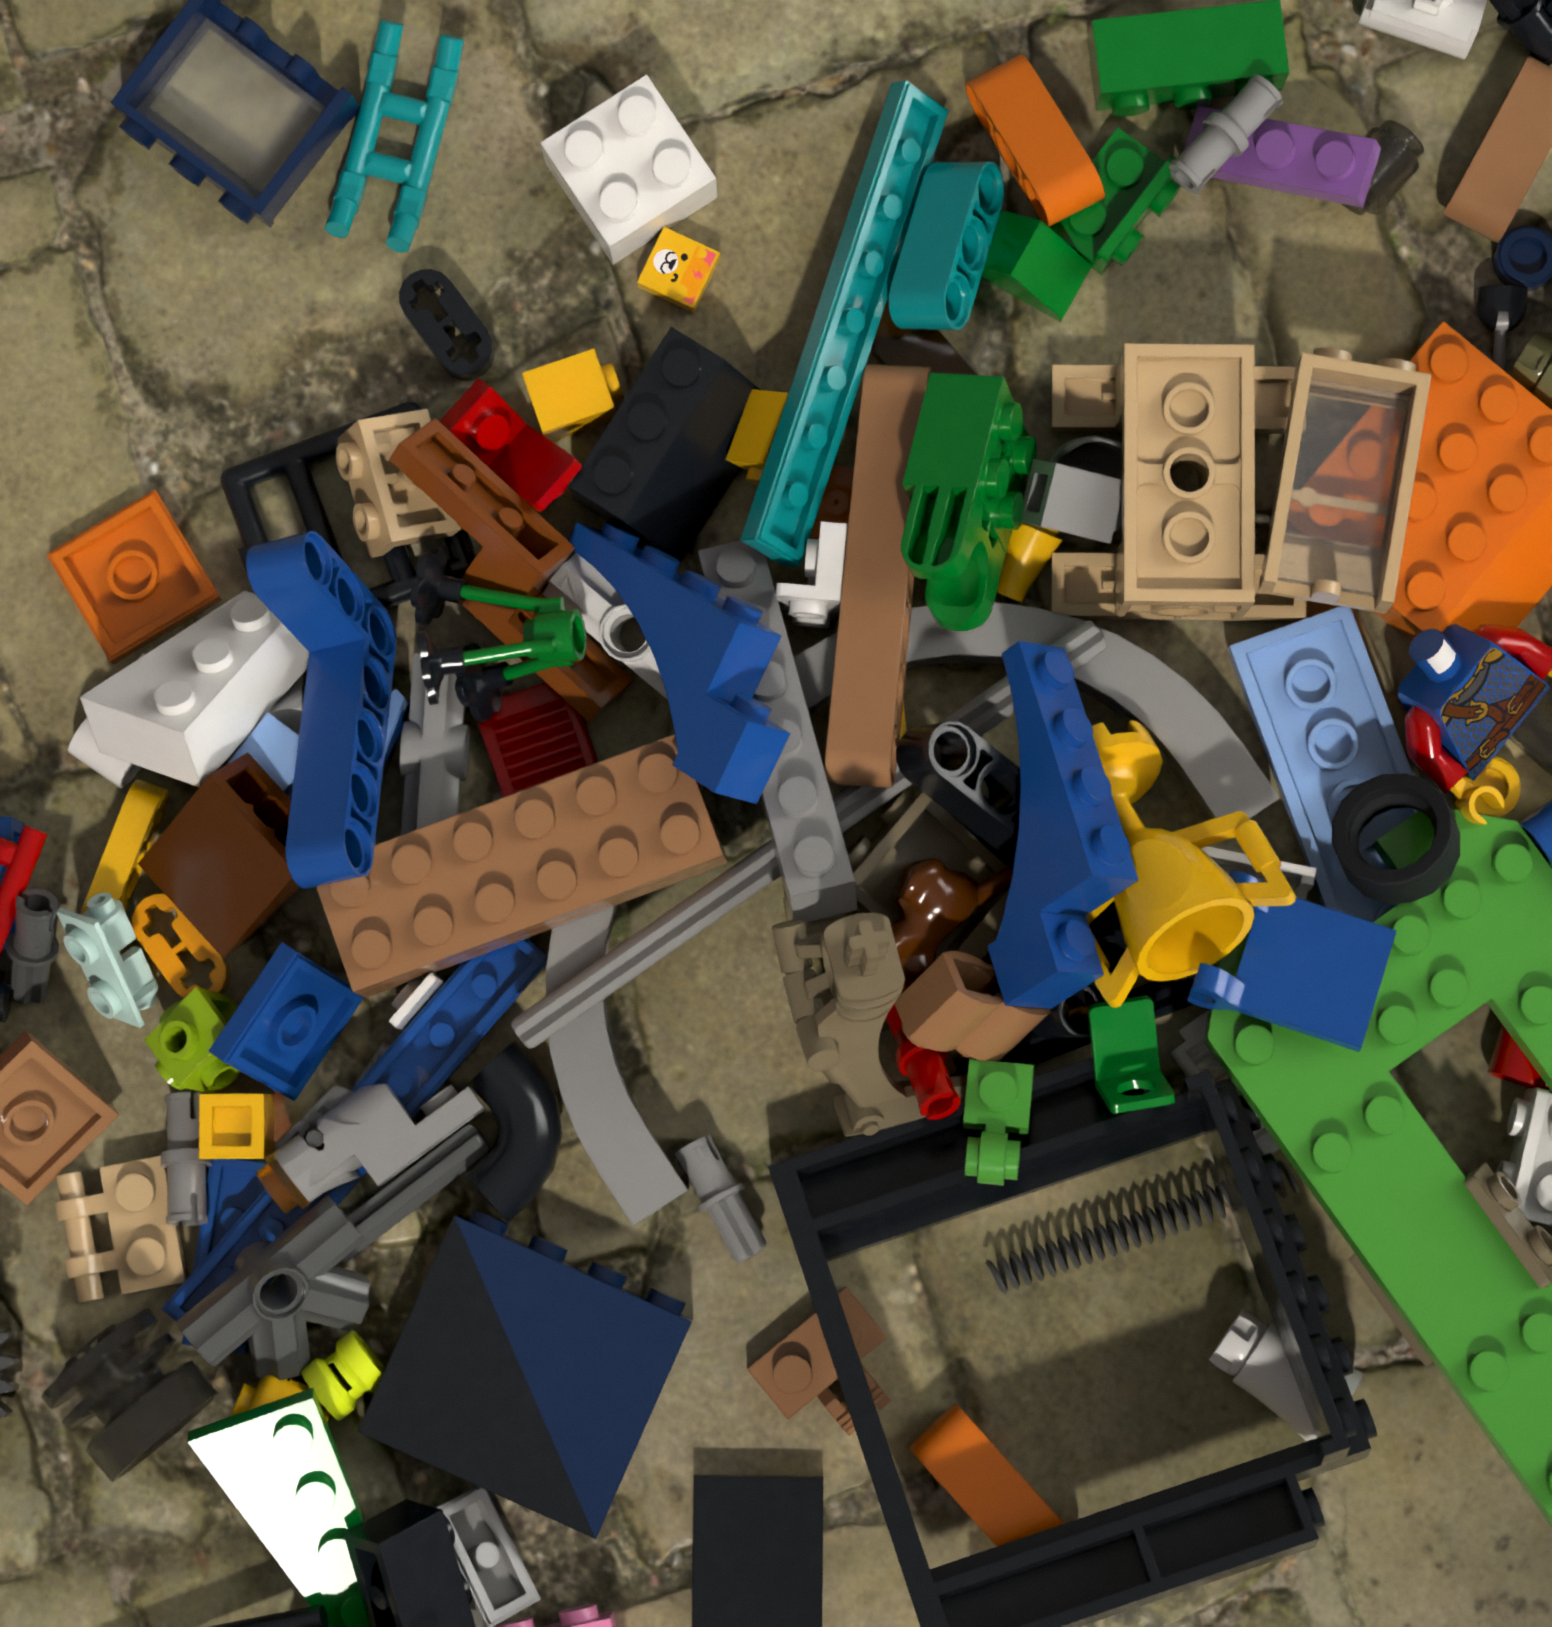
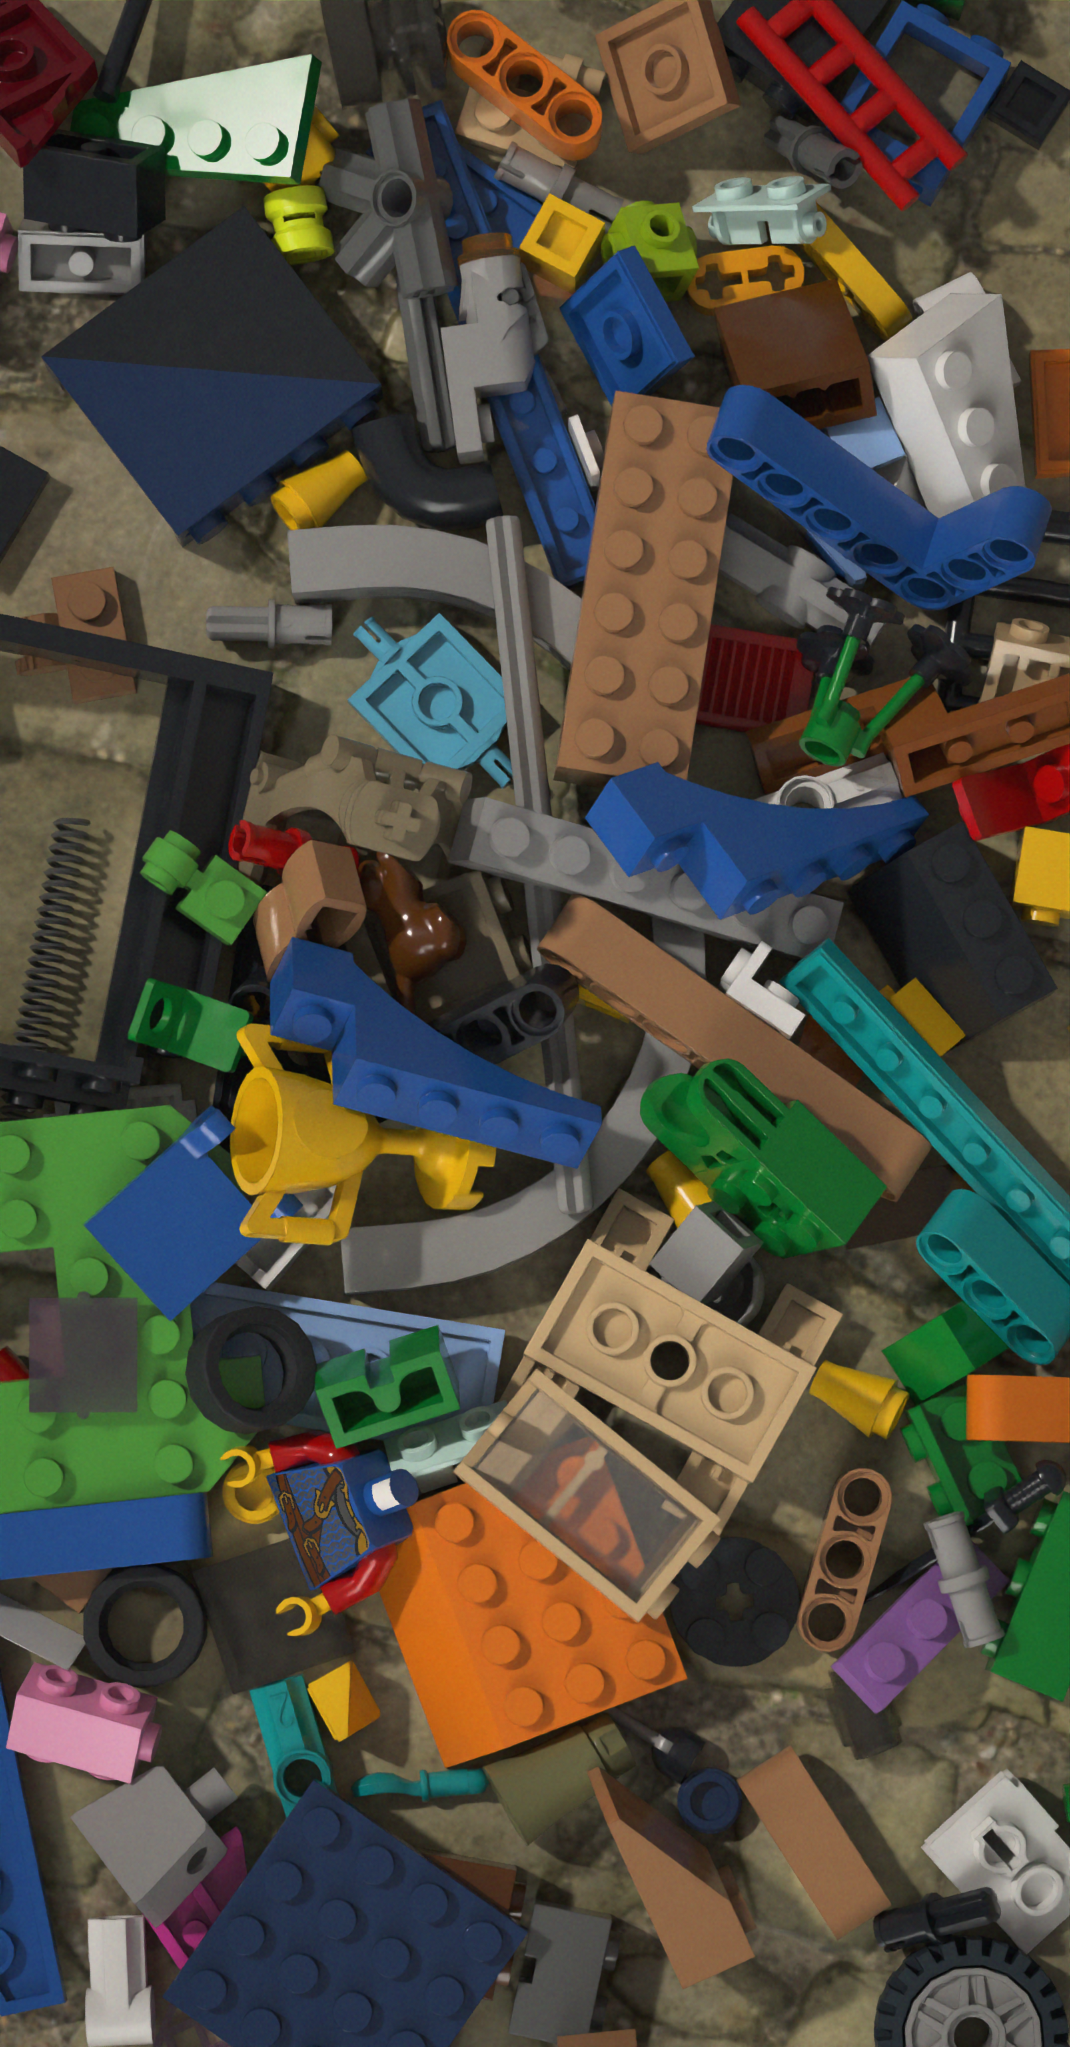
camera: 120 degrees right, 0 degrees up
(88, 1261) = (514, 57): none -> orange beam
(581, 1222) = (318, 492): none -> yellow cone
(711, 1012) = (434, 698): none -> medium azure plate
(1113, 310) = (861, 1398): none -> yellow cone
(1146, 138) = (1000, 1507): none -> black sword
(1282, 231) = (847, 1592): none -> medium nougat beam
(1346, 708) = (389, 1393): none -> green brick
(1352, 291) = (762, 1627): none -> black plate
(1366, 643) = (433, 1449): none -> light aqua hinge
(1468, 990) = (83, 1354): none -> piece

